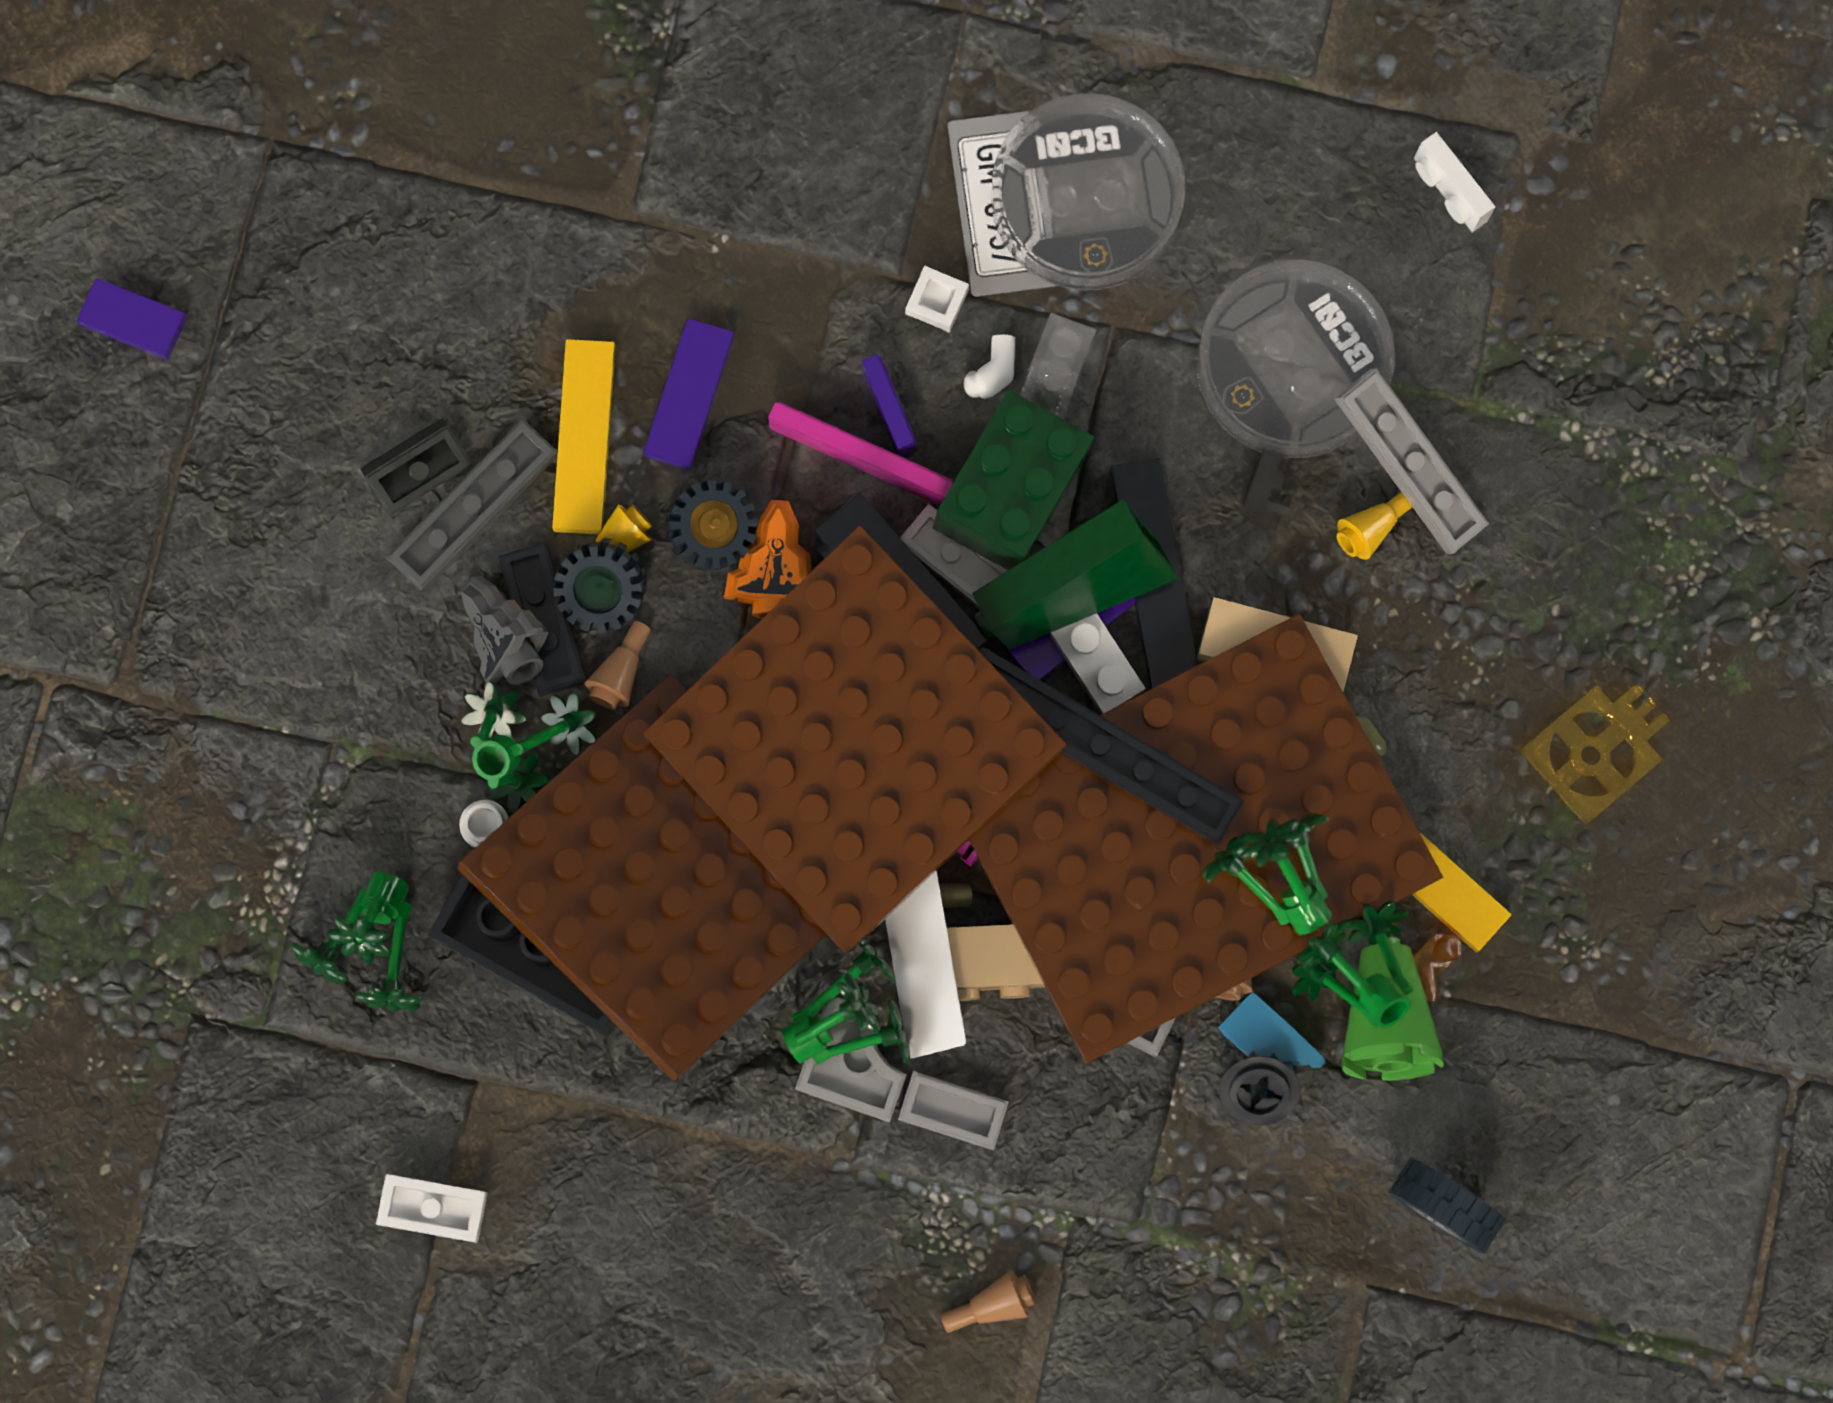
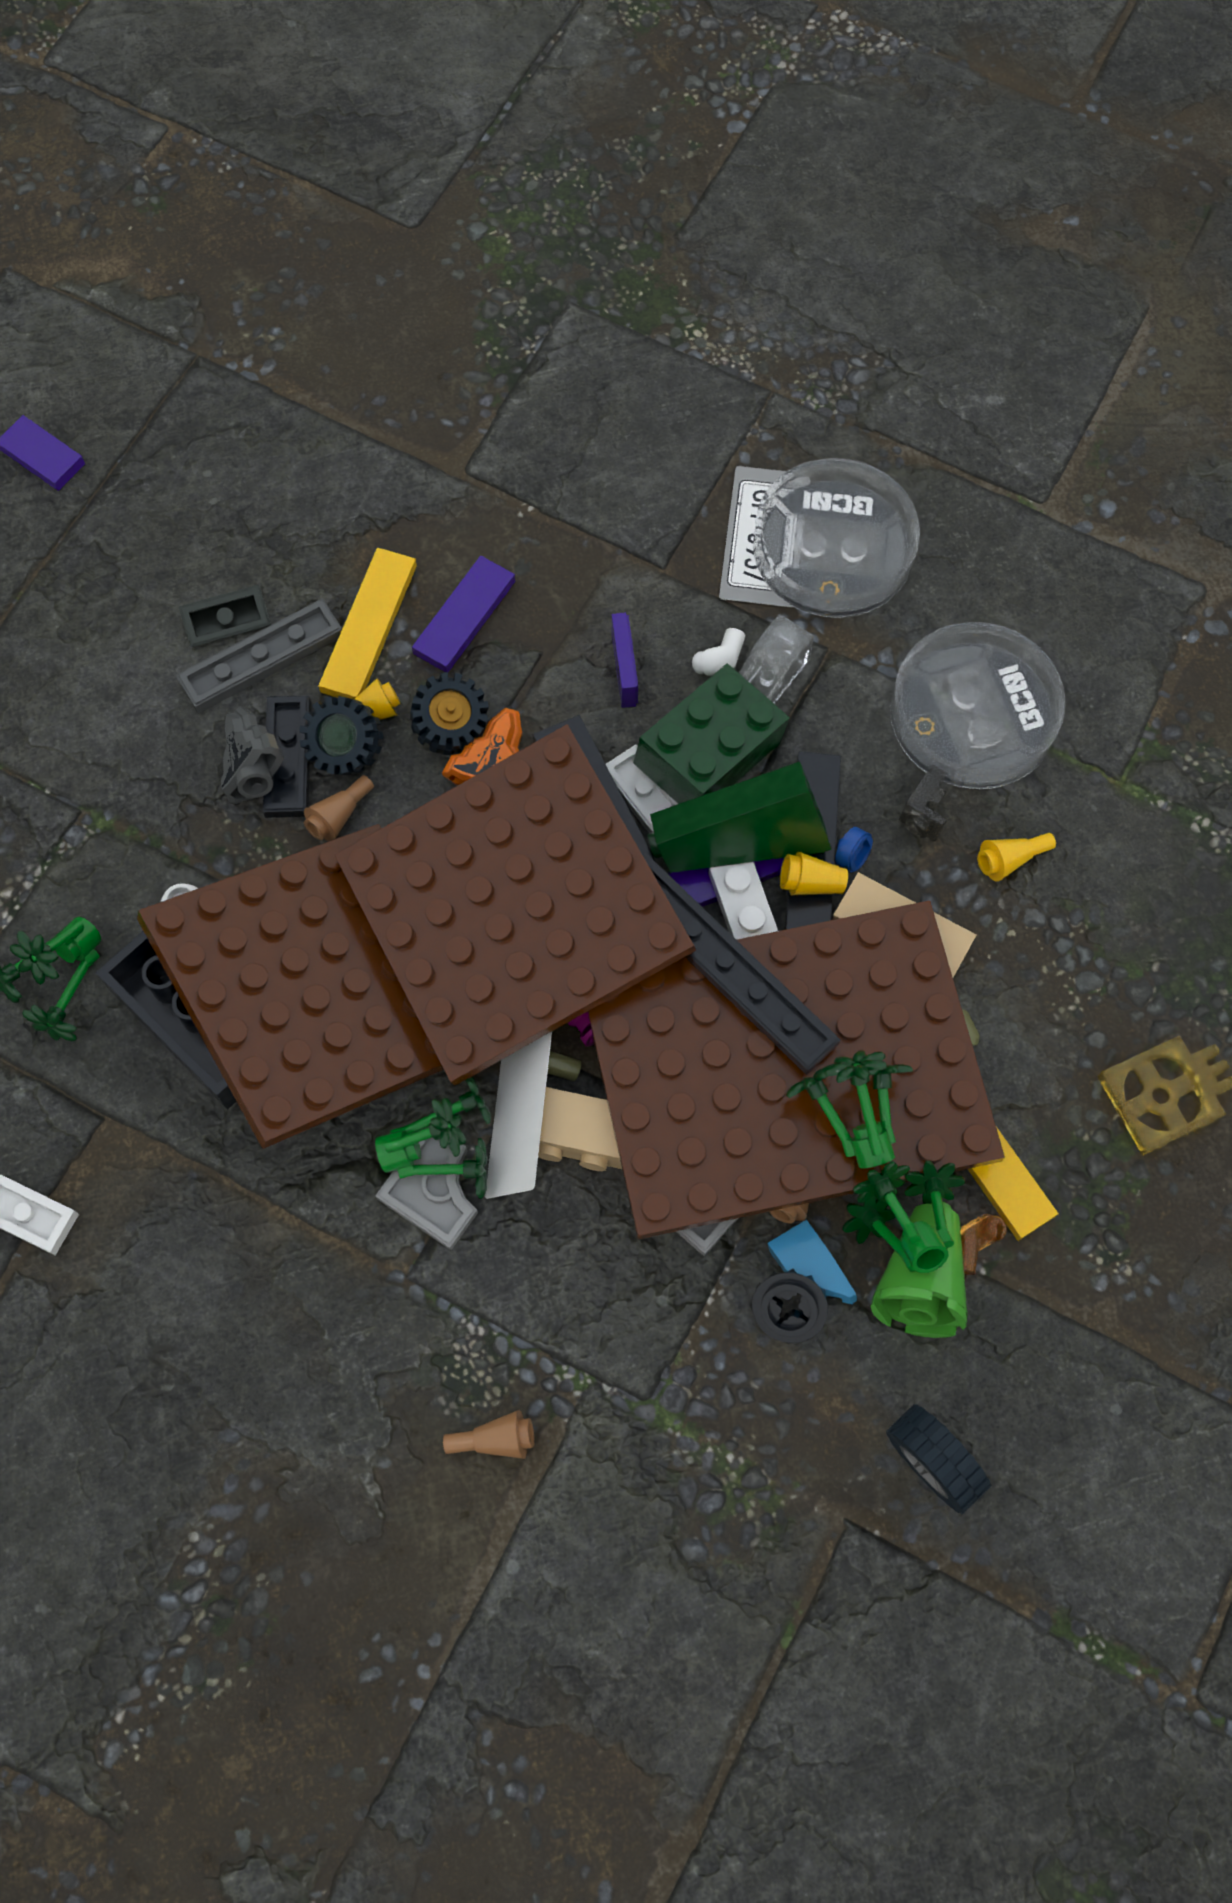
camera: 15 degrees right, 10 degrees down
(500, 755) = (209, 831): dark green plant -> none
(859, 453) = (585, 686): dark pink tile -> none
(937, 299) = (688, 589): white plate -> none
(953, 1110) = (510, 1254): light grey tile -> none
(1163, 614) = (811, 876): none -> yellow cone
(1200, 565) = (853, 849): none -> blue tile
(1411, 461) = (1057, 807): light grey tile -> none
(1463, 196) = (1145, 603): white plate -> none

